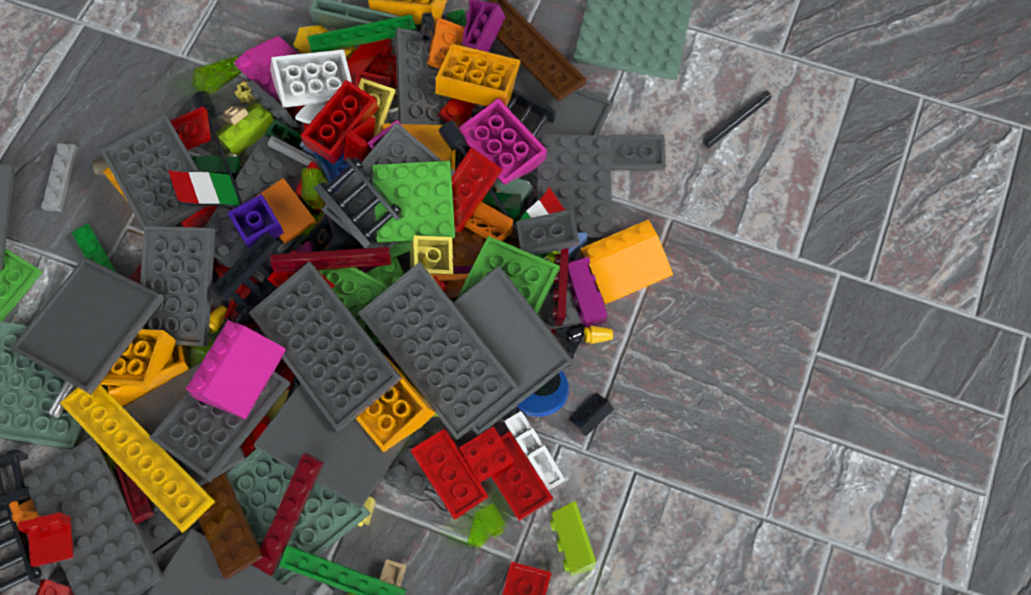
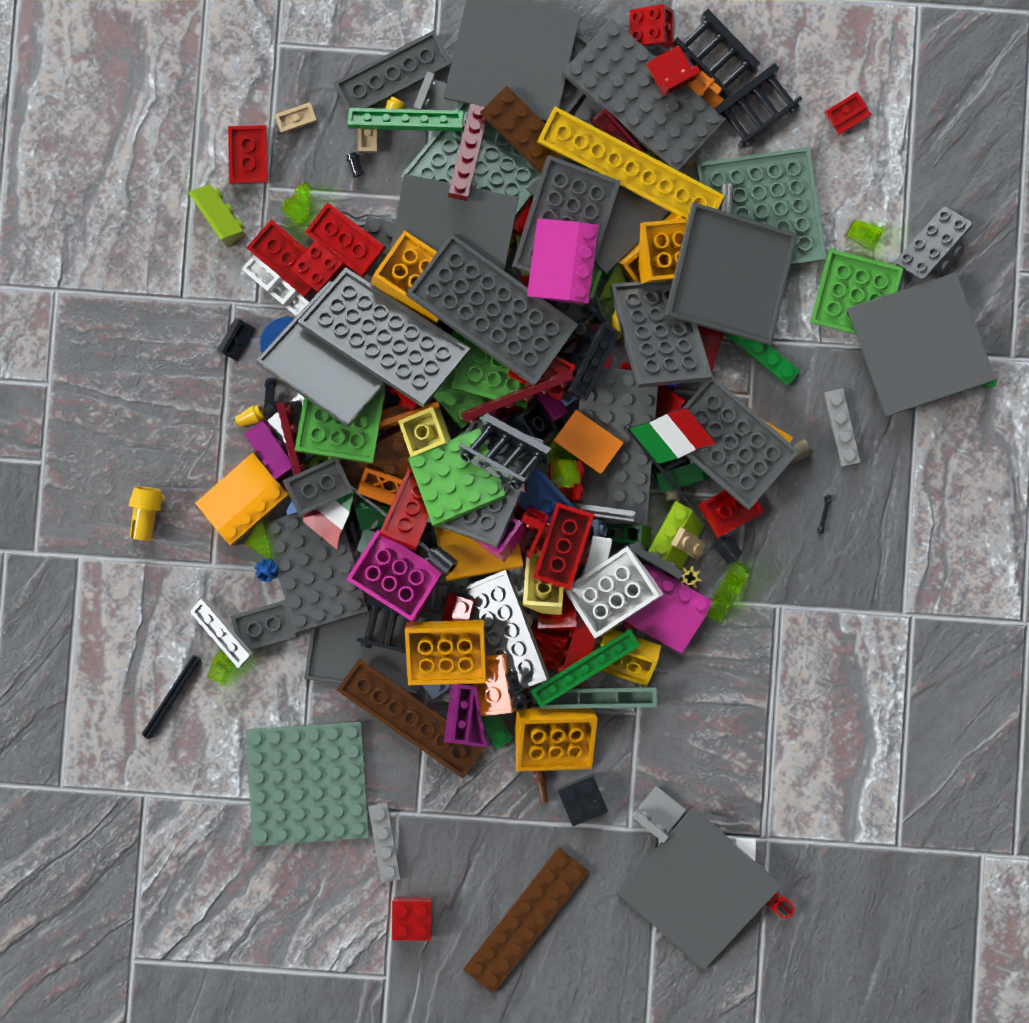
camera: 155 degrees right, 20 degrees up
(101, 125) = (827, 498): none -> black hinge
(254, 220) = (605, 412): dark purple brick -> none
(414, 553) = (355, 165): none -> black pin
(620, 195) = (266, 570): none -> blue gear
(620, 218) = (259, 541): none -> clear neon green slope
(677, 153) = (221, 632): none -> plate
(681, 133) = (221, 668): none -> clear neon green slope
(721, 278) = (145, 504): none -> yellow piece

